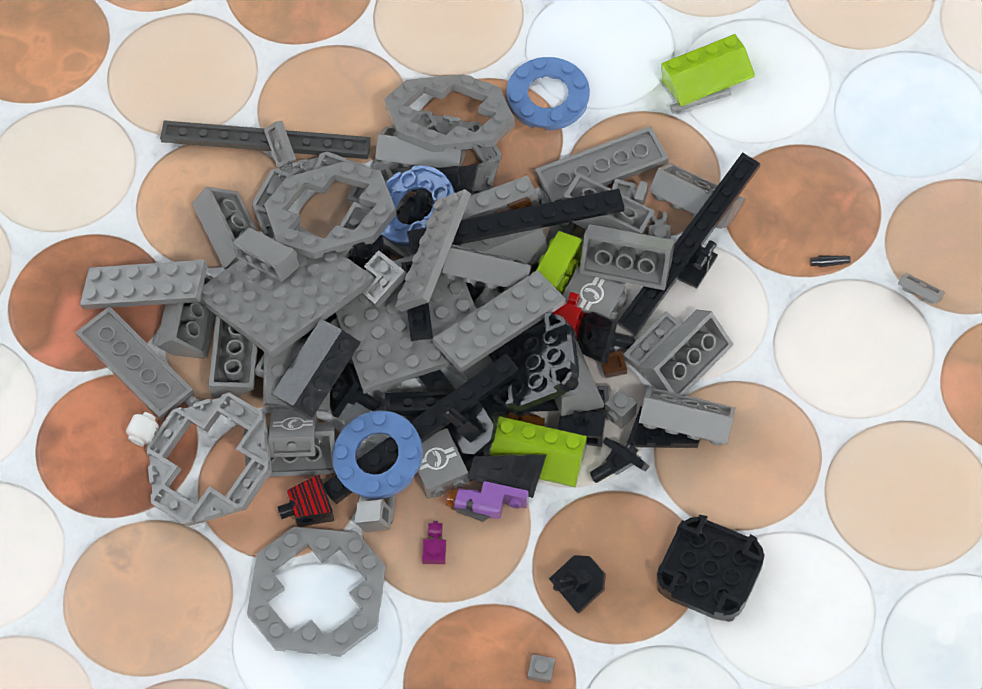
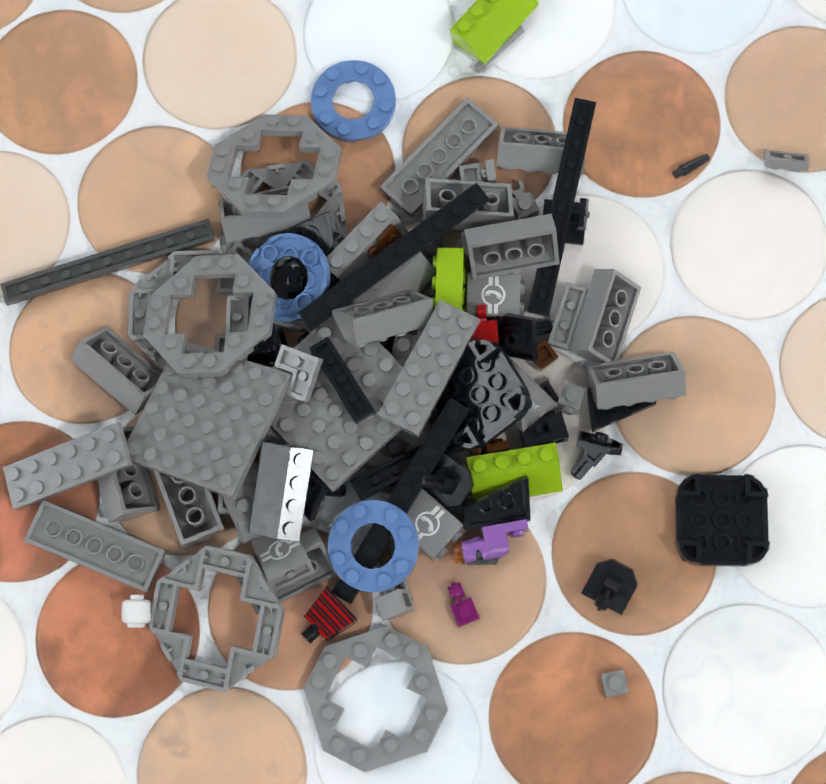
camera: 20 degrees left, 15 degrees up
(266, 254) = (174, 391): light grey brick -> none
(279, 144) = (127, 264): light grey plate -> none
(432, 250) = (338, 327): light grey plate -> none

